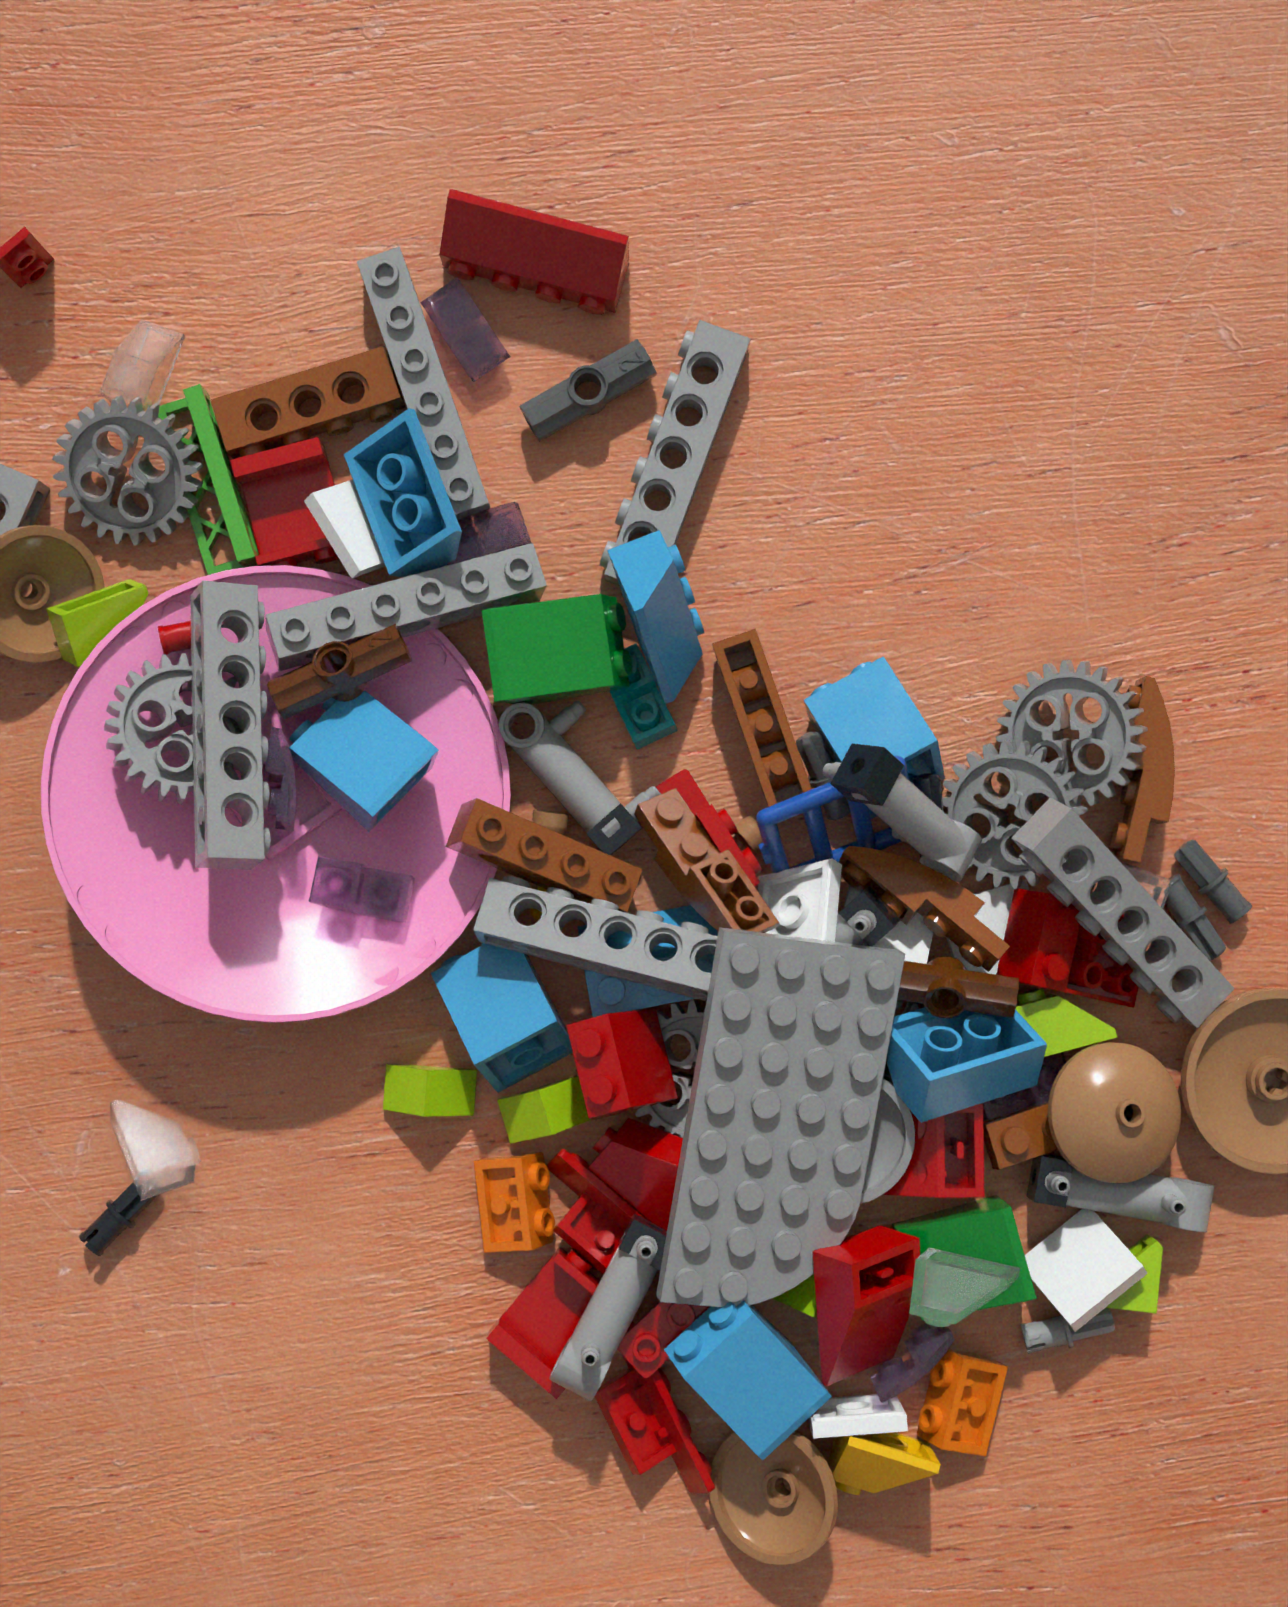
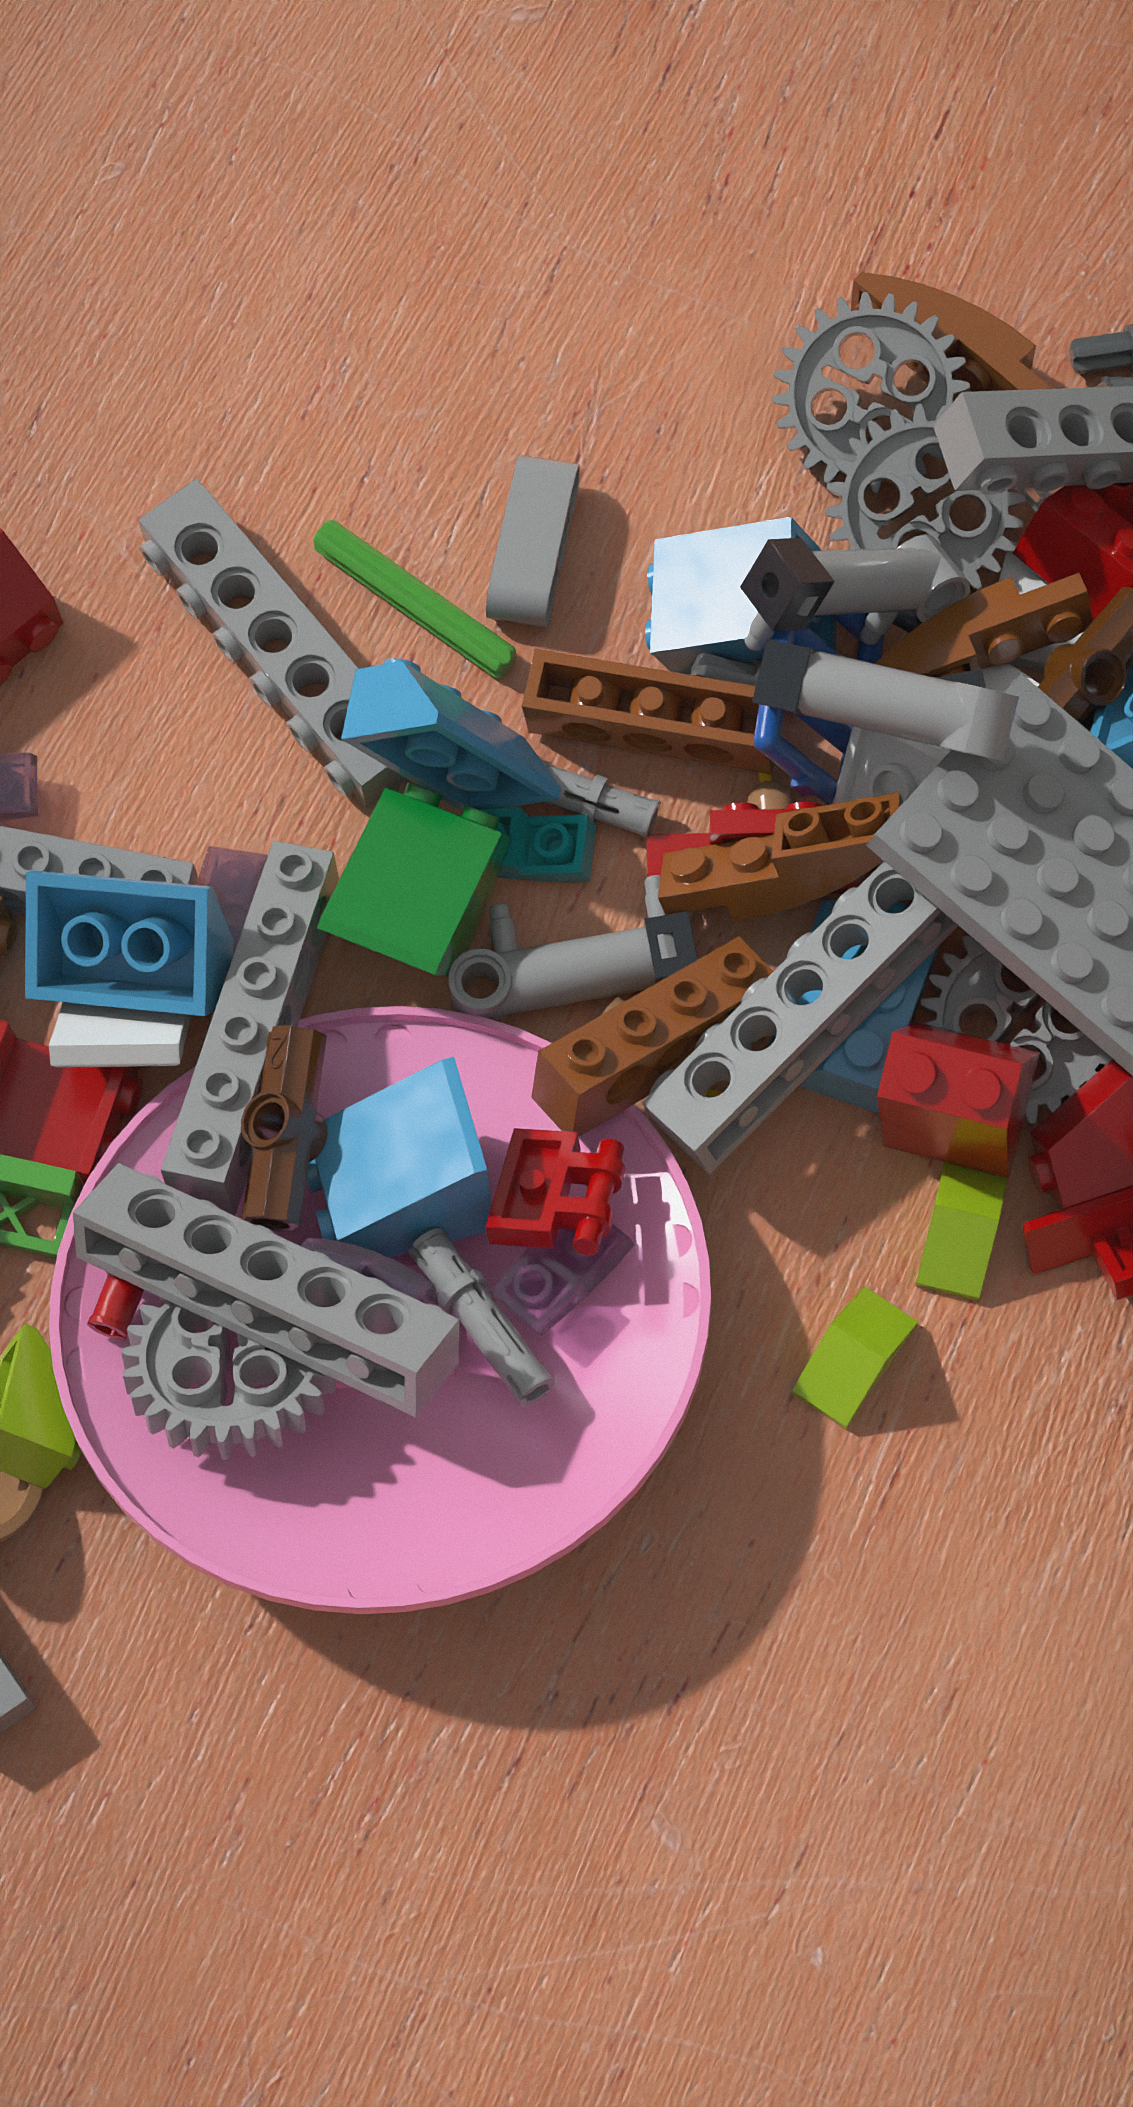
camera: 55 degrees left, 15 degrees down
(114, 1220) = (786, 1829): black axle -> none
(153, 1149) = (726, 1732): clear slope -> none
(298, 862) = (465, 1295): none -> light grey pin
(397, 845) = (535, 1188): none -> red plate
(502, 1013) = (814, 1203): dark azure slope -> none
(514, 1202) = (1055, 1330): orange bracket -> none
(613, 374) = (134, 725): dark grey piece -> none
(691, 725) = (604, 801): none -> light grey pin
(760, 524) = (414, 598): none -> bright green axle
(832, 943) = (885, 700): none -> light grey piece
(842, 576) = (532, 541): none -> light grey beam

